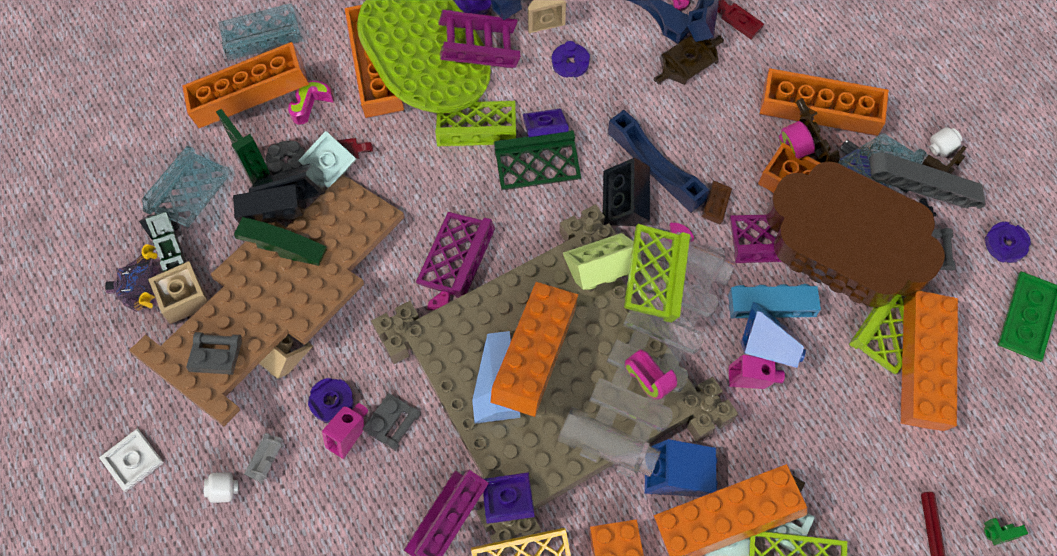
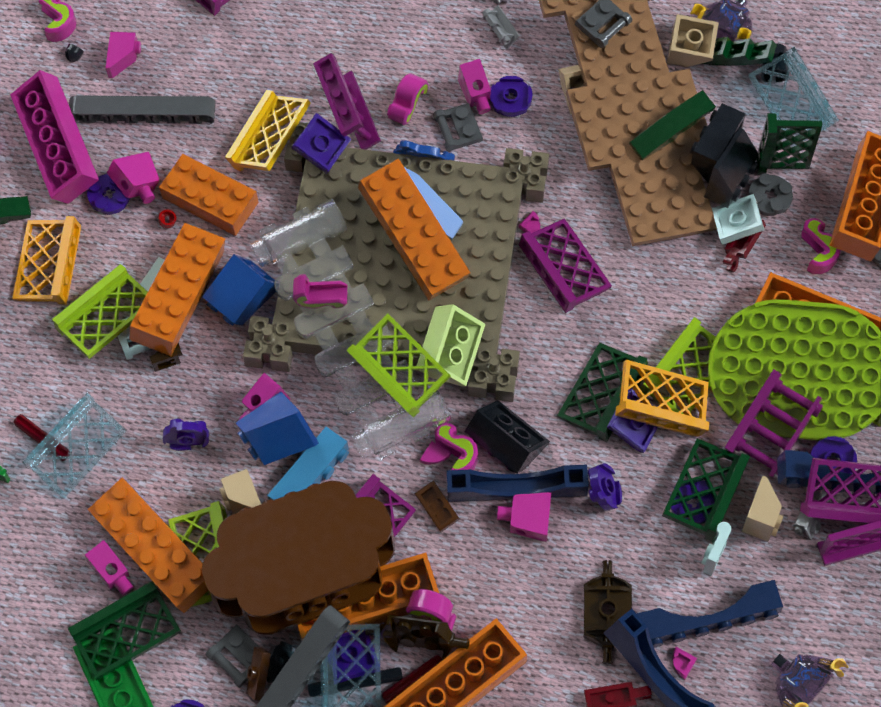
camera: 130 degrees right, 0 degrees up
(396, 478) = (406, 98): none -> dark pink animal
(446, 421) = (410, 148): none -> blue tile
(529, 102) = (663, 417): none -> light orange fence
(554, 39) = (725, 494): none -> dark green fence
(602, 17) = (715, 551): none -> light aqua plate
(608, 108) = (604, 488): none -> dark purple plate
(665, 207) = (459, 445): none -> dark pink animal
(672, 141) = (528, 515): none -> dark pink torso
(833, 403) = (184, 434): none -> dark purple plate
(840, 322) = (239, 492): none -> tan slope
(843, 135) = (411, 678): none -> dark red axle
(921, 505) = (63, 428): none -> clear light blue fence
(943, 216) = (258, 673): none -> reddish brown plate
(976, 373) = (99, 558): none -> dark pink torso
(998, 349) = (119, 611): none -> dark green fence

